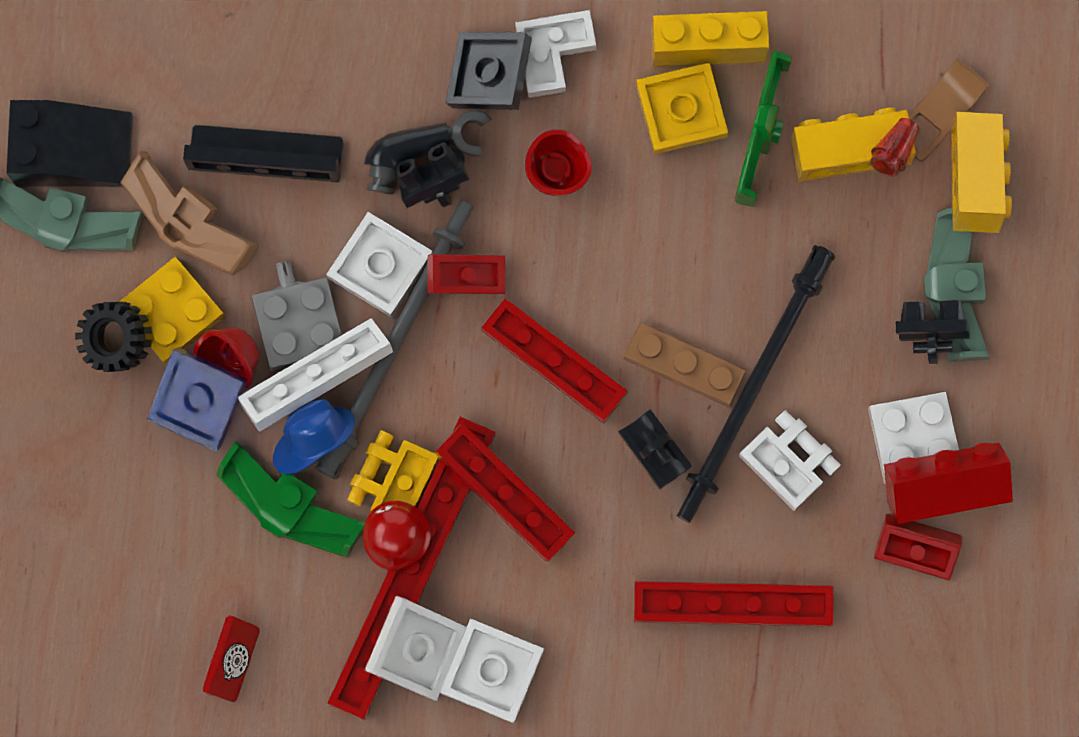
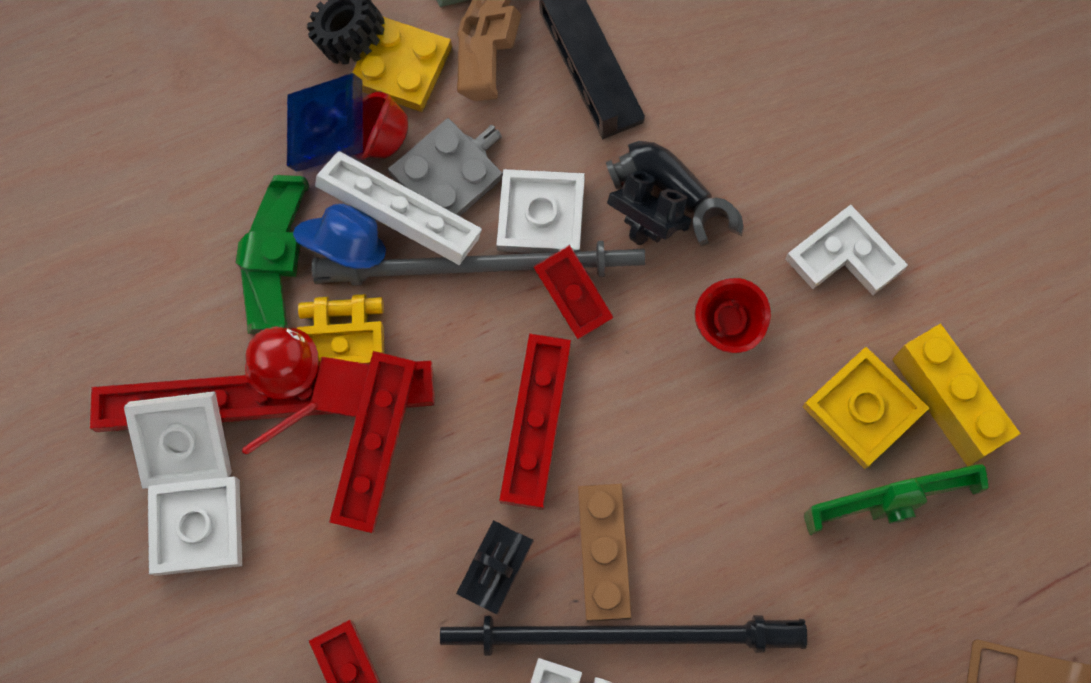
camera: 65 degrees right, 5 degrees down
(231, 659) = (98, 280): red slope -> none
(444, 500) = (335, 391): none -> red piece
(488, 70) = (787, 205): plate -> none
(842, 144) = (939, 604): yellow brick -> none
(894, 149) = (959, 650): clear red cone -> none

